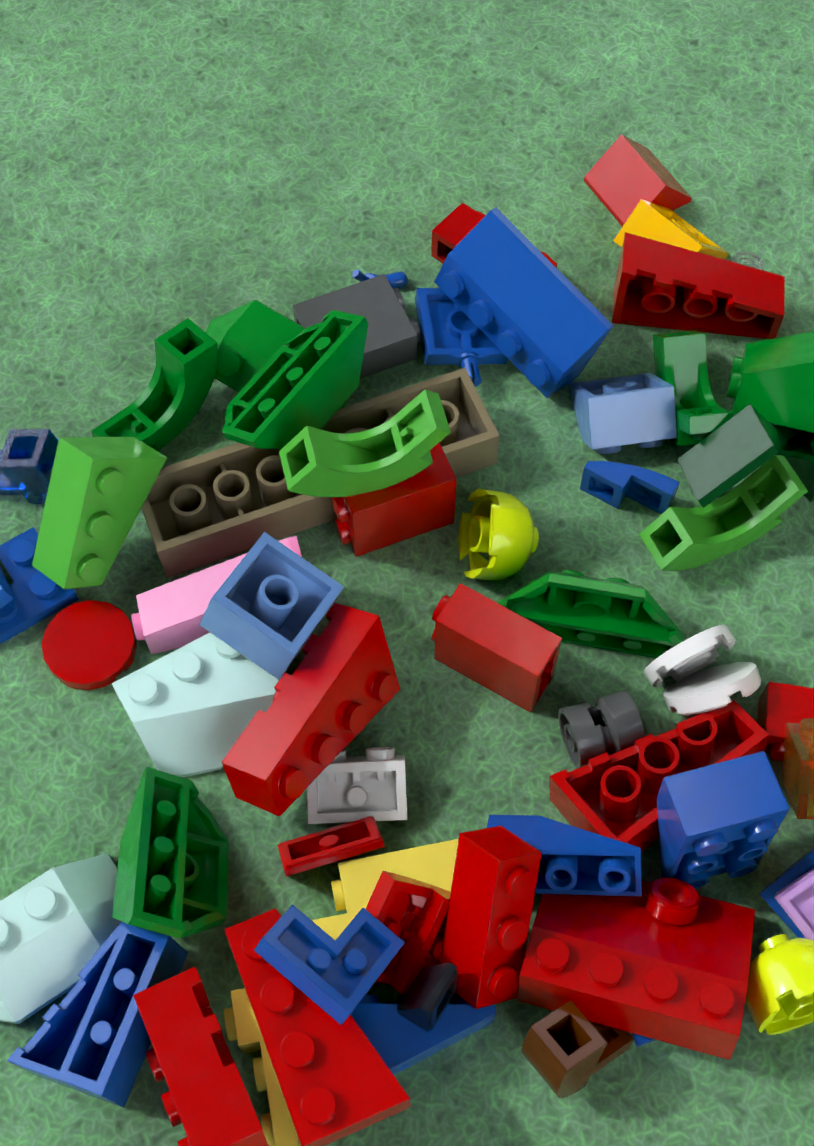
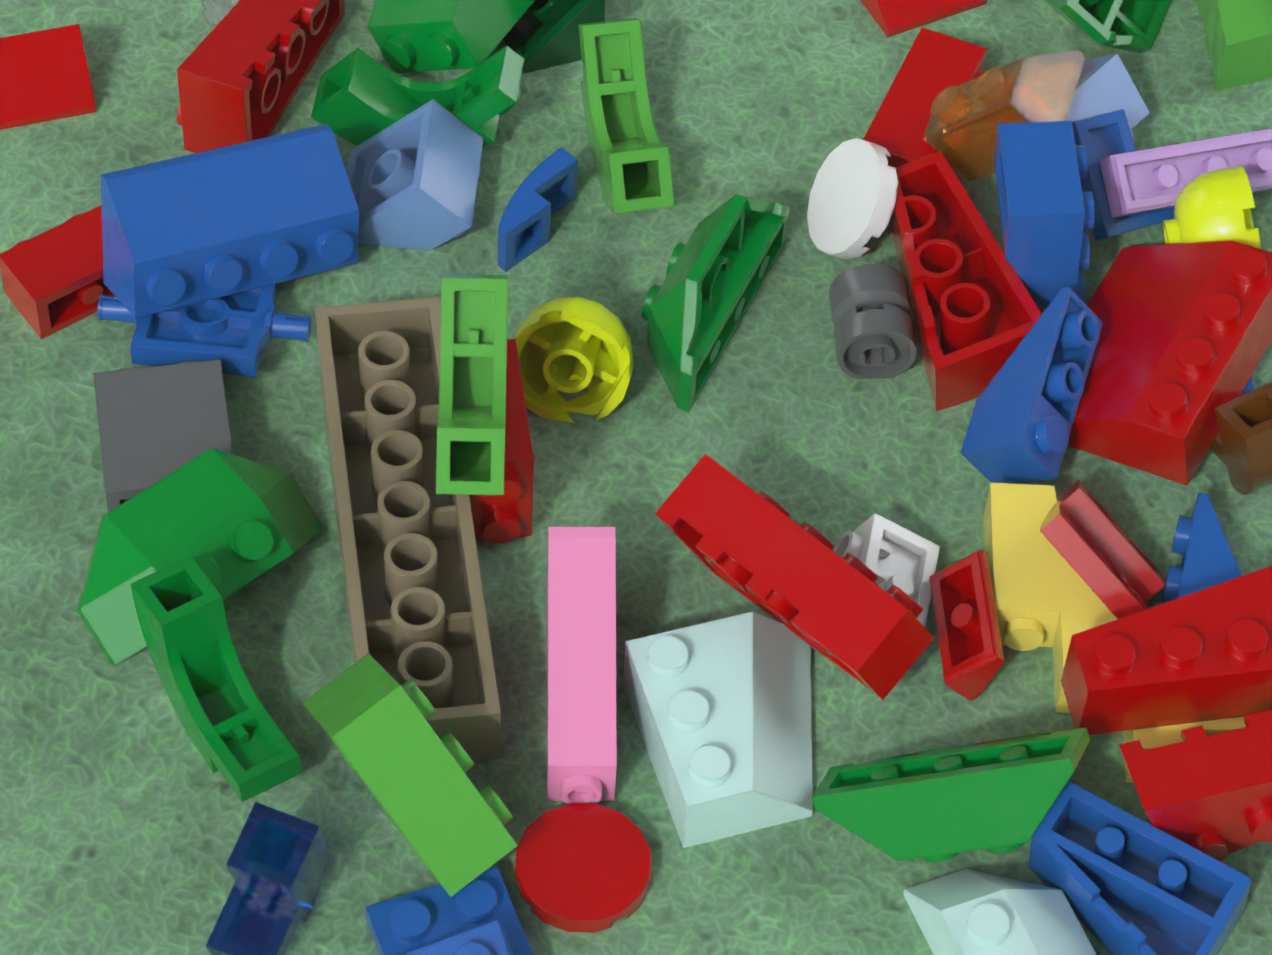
camera: 80 degrees left, 10 degrees down
(270, 605) = (654, 571): medium blue slope -> none
(300, 383) = (300, 475): green wedge -> none
(330, 970) = (1150, 579): blue plate -> none
(396, 280) = (71, 404): blue piece -> none
(429, 995) = (1182, 537): black slope -> none
(490, 914) = (1109, 451): red brick -> none
(494, 646) = (746, 383): red brick -> none
(667, 227) = (142, 68): yellow slope -> none
(672, 901) = (1112, 300): red tile -> none
(689, 655) = (812, 194): white tile -> none
(730, 454) = (567, 72): slope -> none

